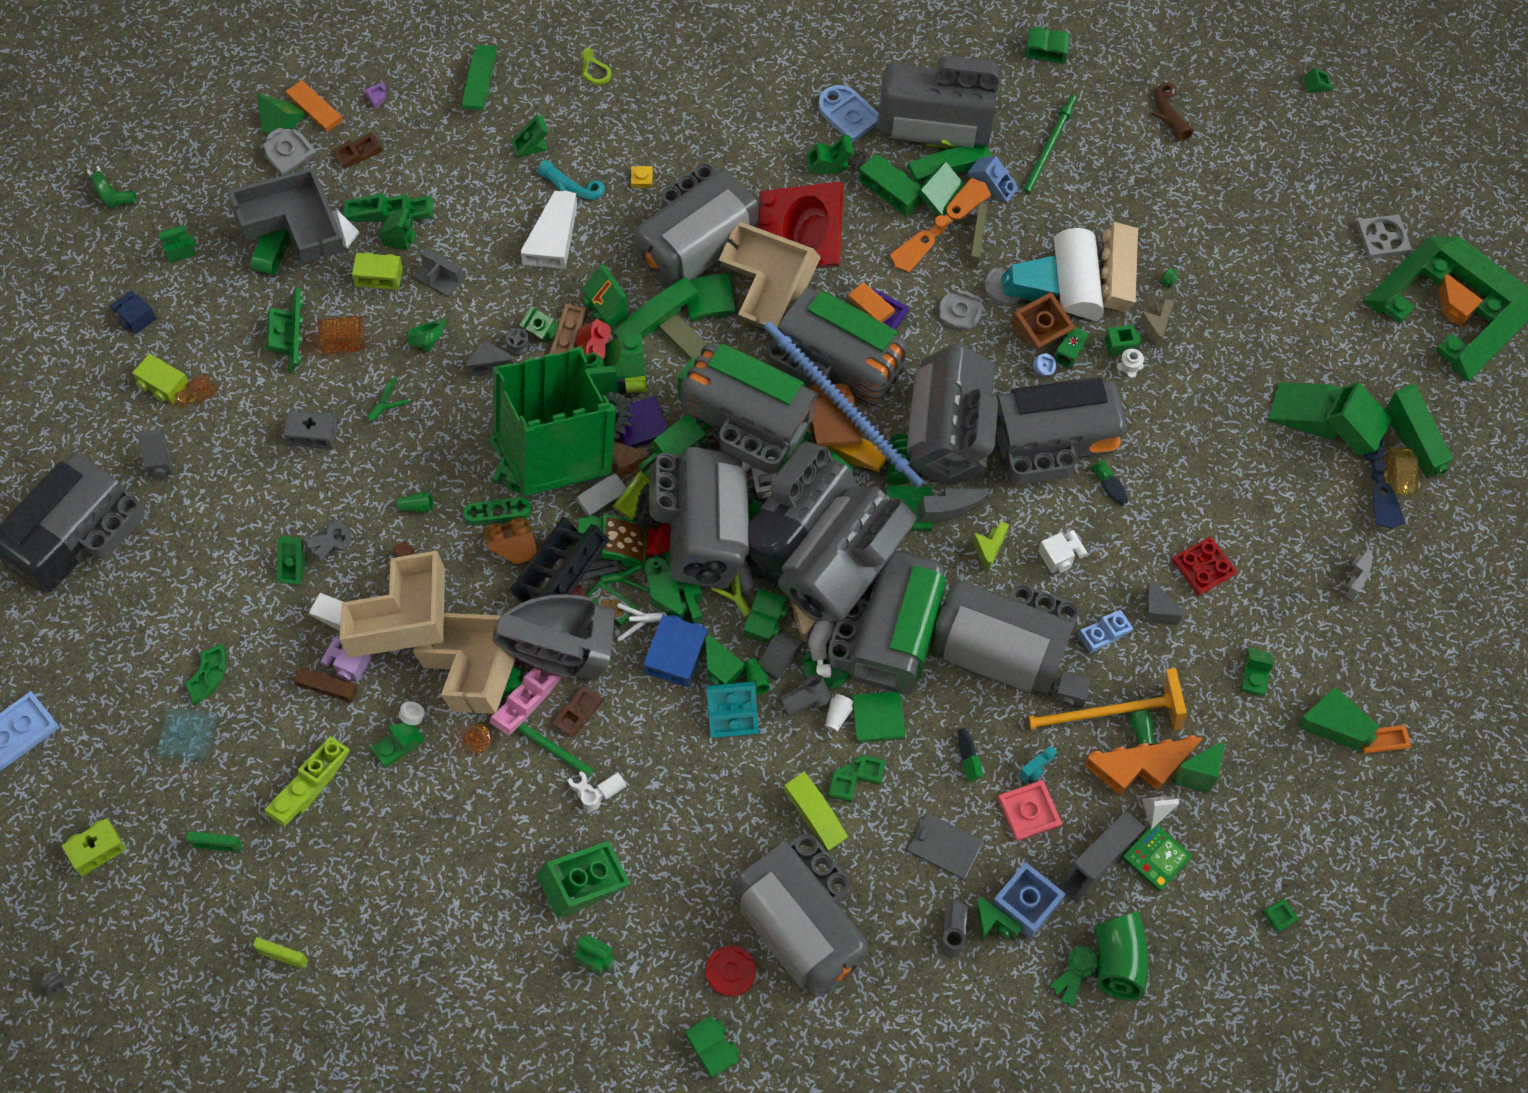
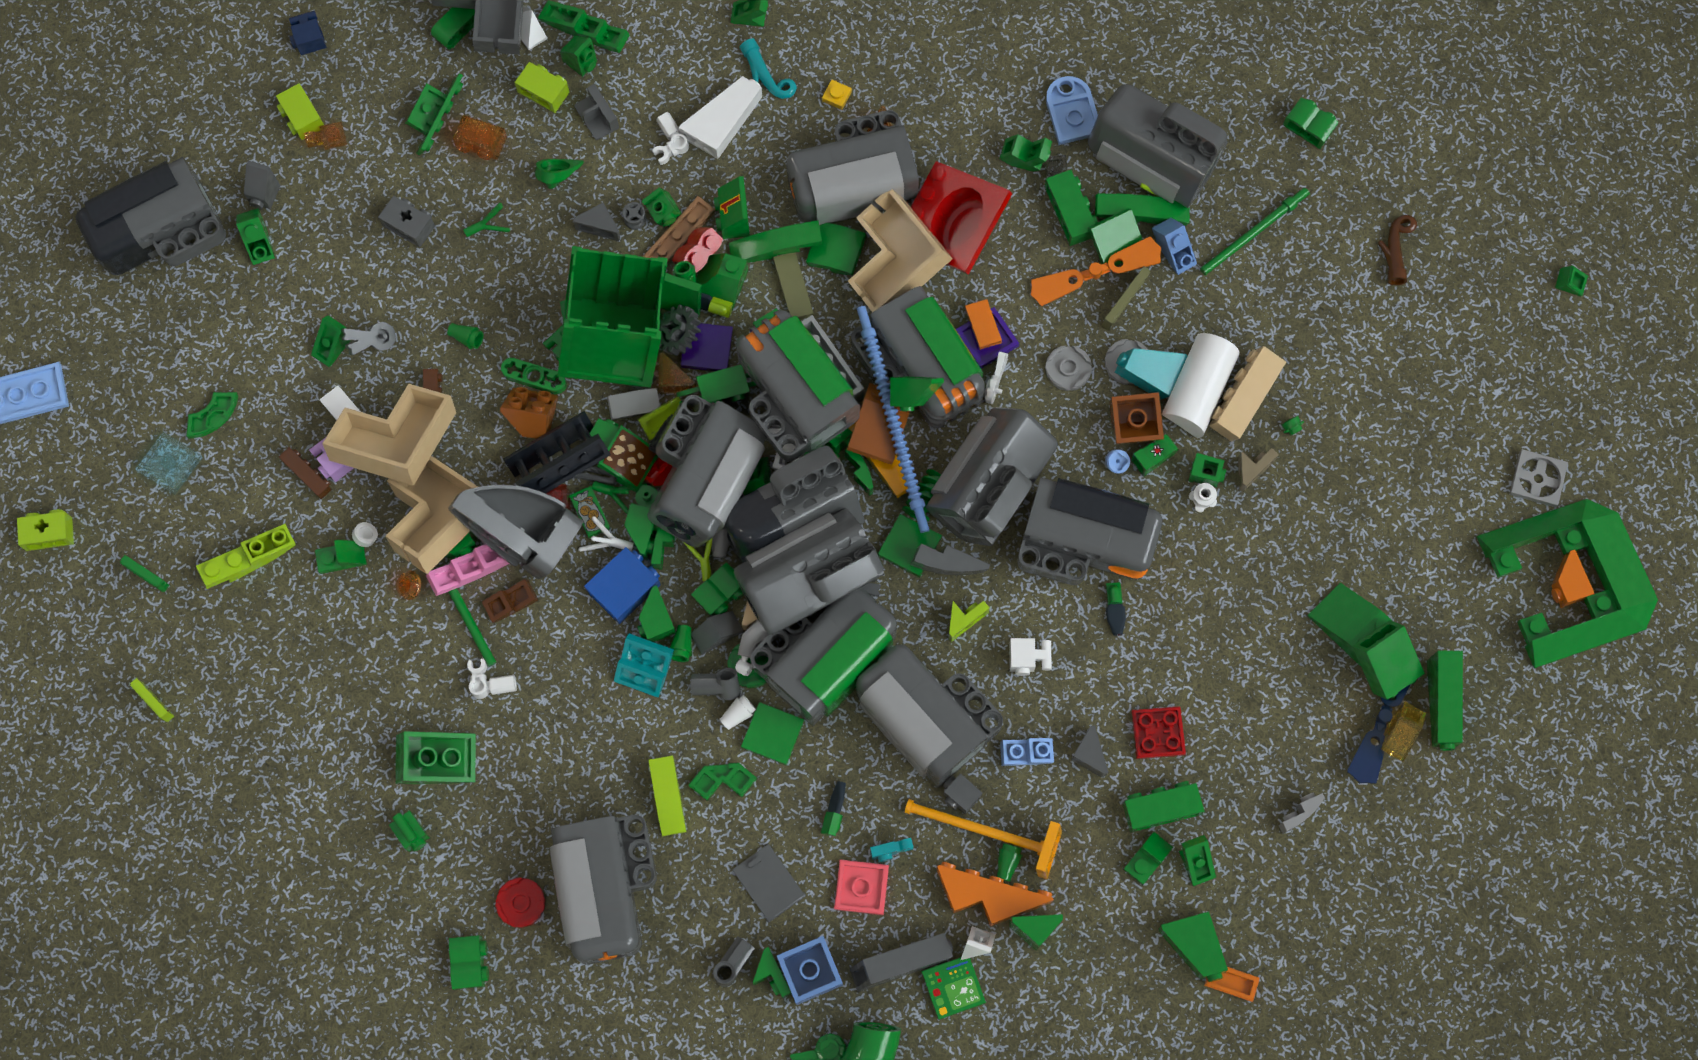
camera: 30 degrees right, 10 degrees up
(172, 500) = (255, 236): none -> green slope
(523, 268) = (678, 142): none -> white bar
(851, 370) = (912, 391): none -> green slope
(904, 328) = (993, 383): none -> white piece
(1245, 622) = (1163, 806): none -> green brick
(1299, 651) = (1197, 860): none -> green slope

